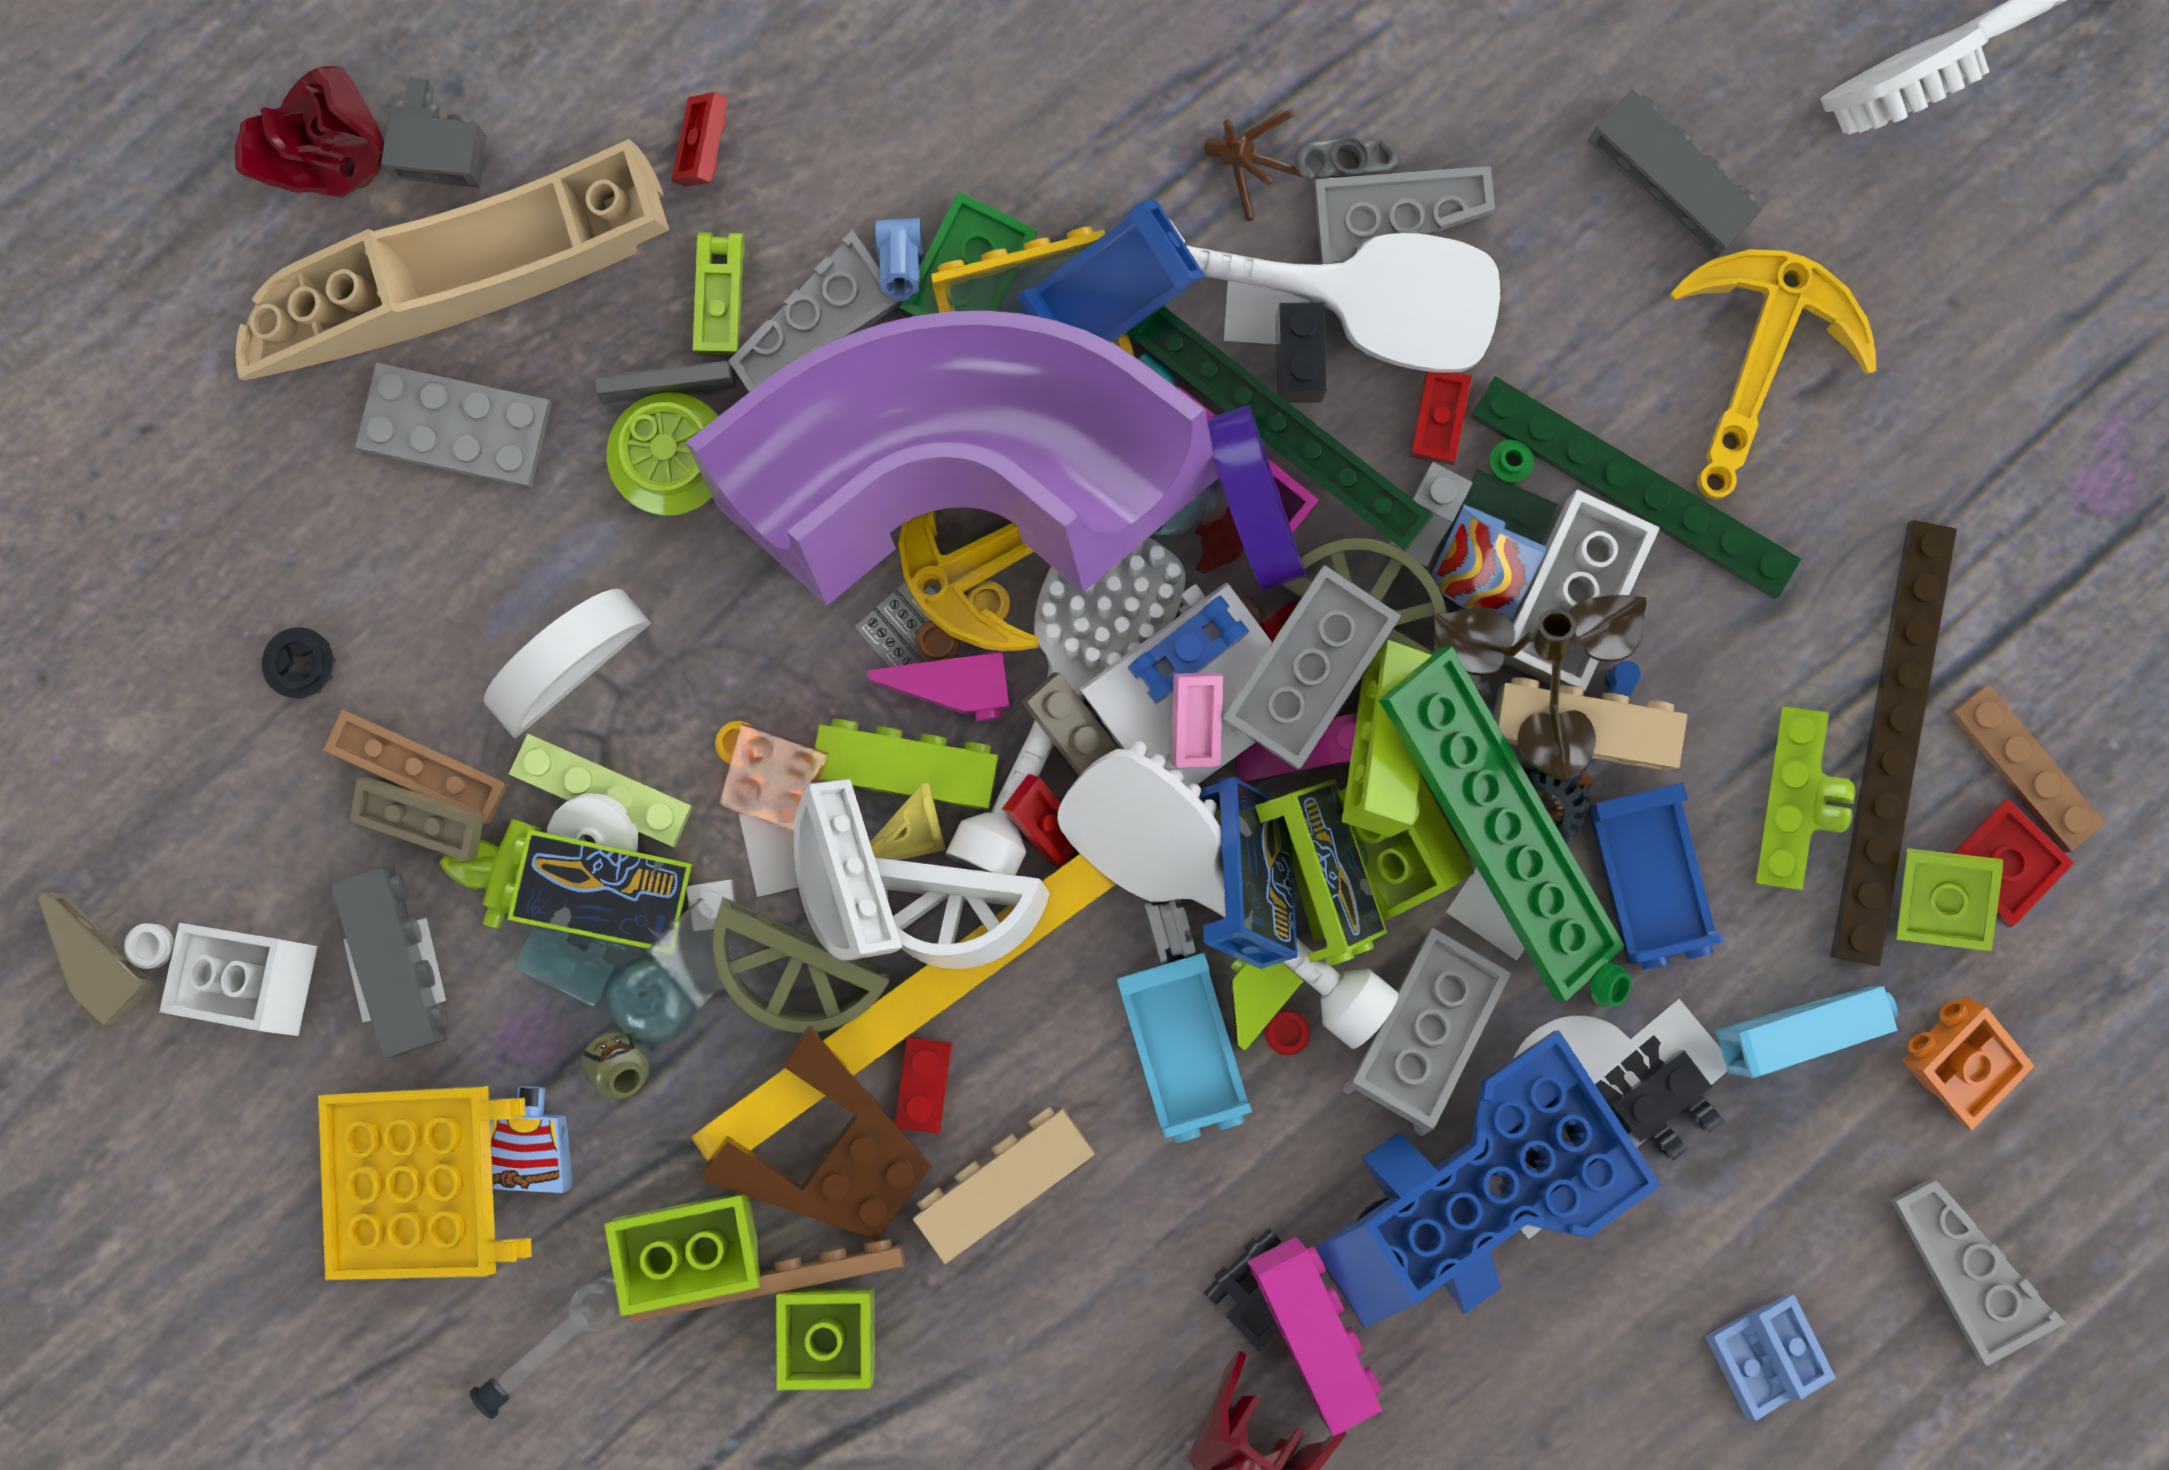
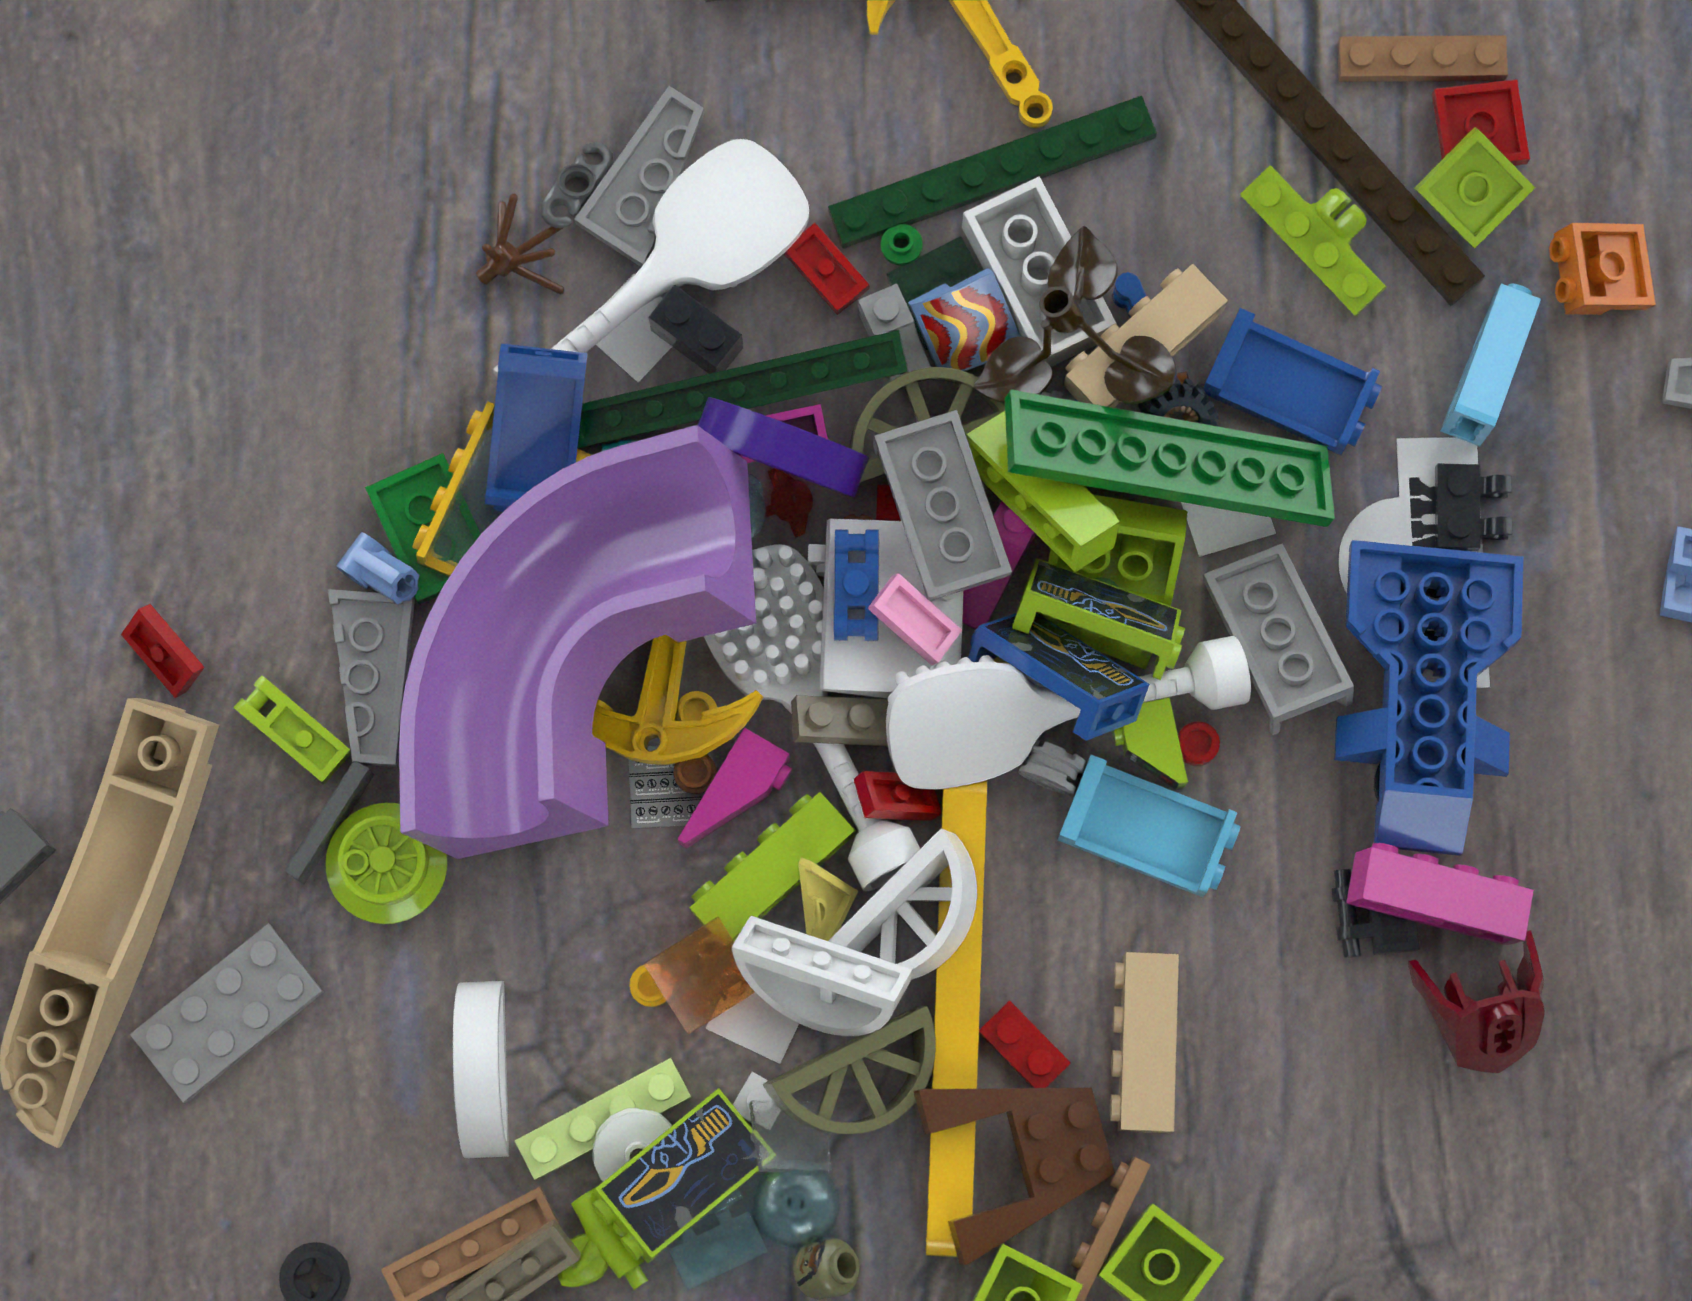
camera: 50 degrees left, 5 degrees down
(1610, 986) = (1348, 479): green plate -> none

